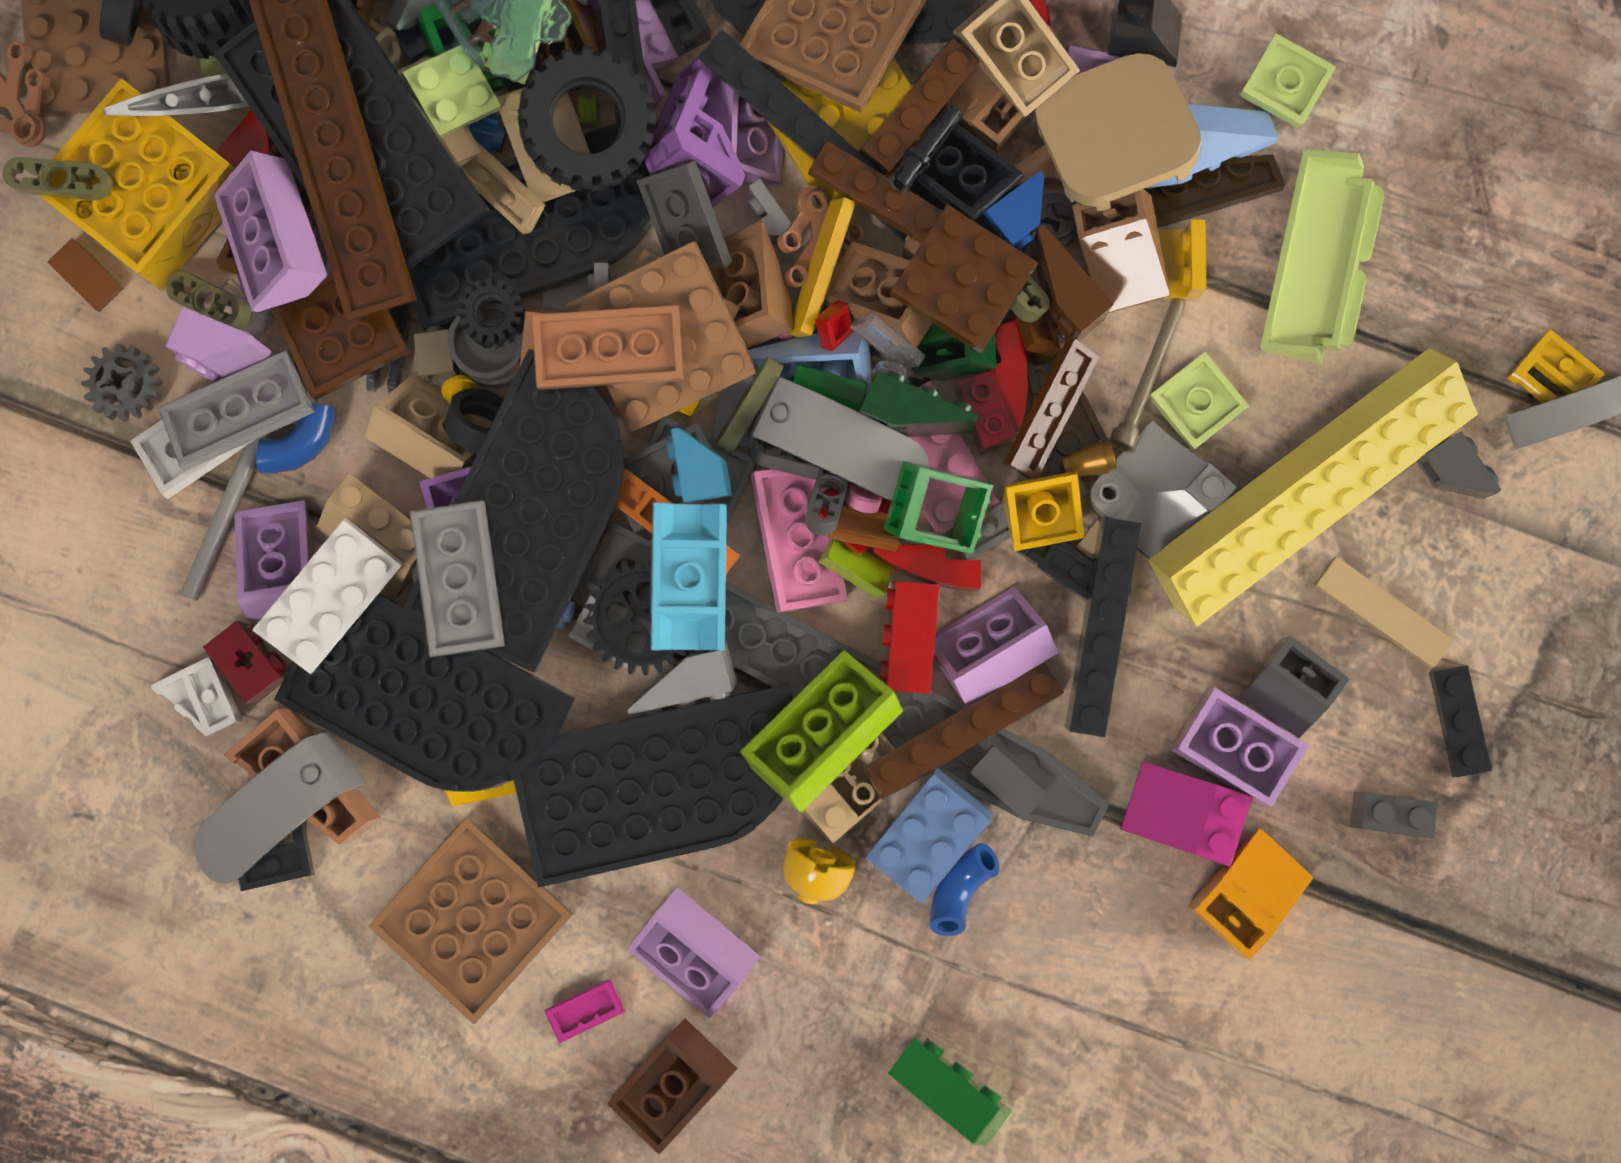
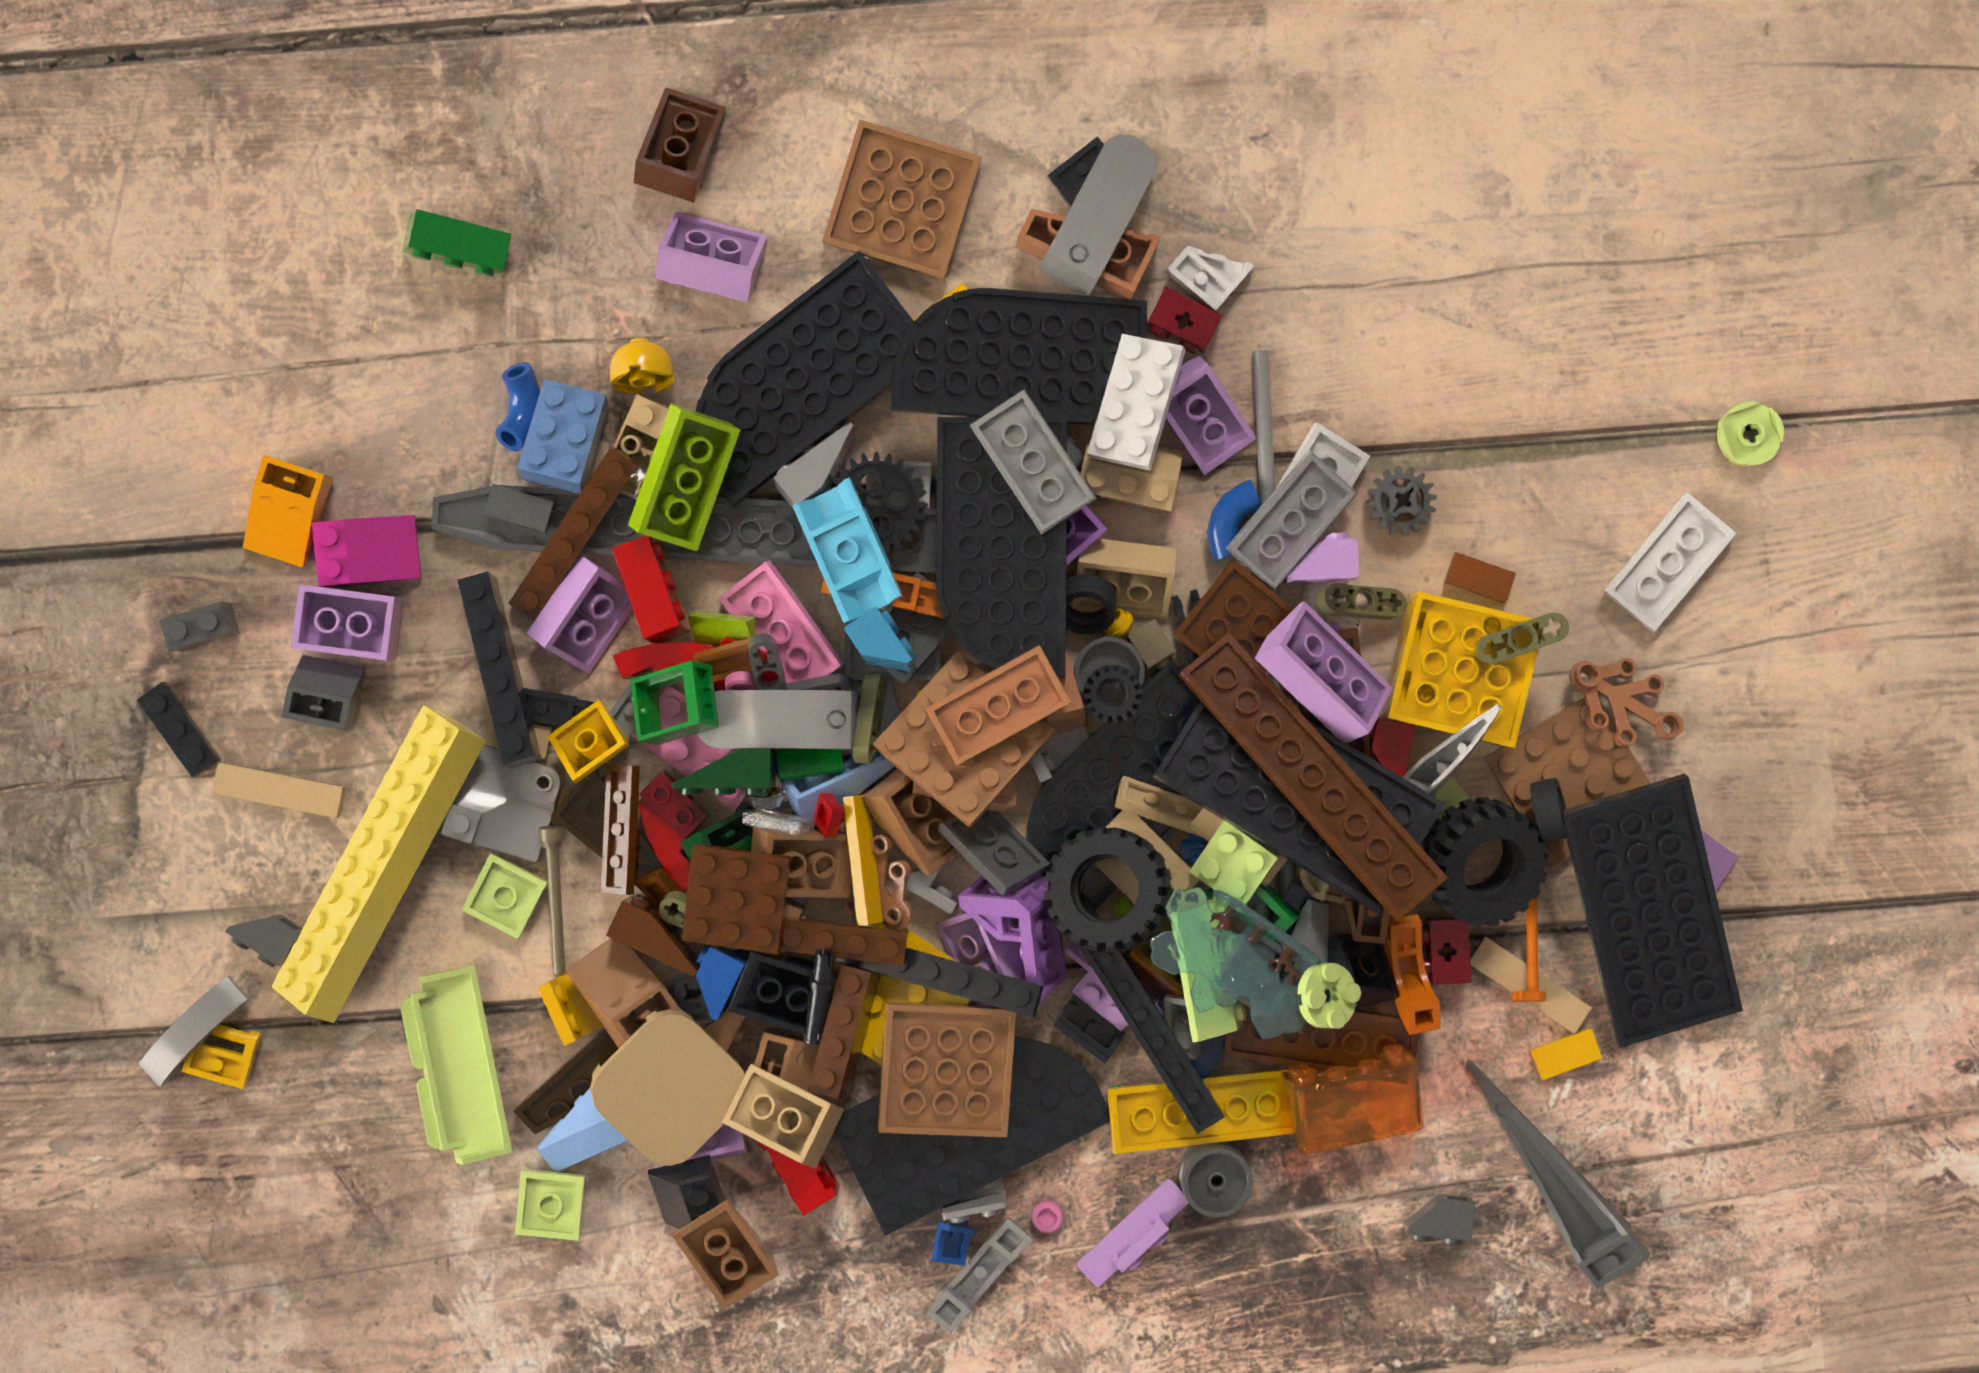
camera: 155 degrees right, 5 degrees up
(585, 1010) = (776, 171): dark pink plate -> none
(1091, 460) = (569, 801): pearl gold cone -> none

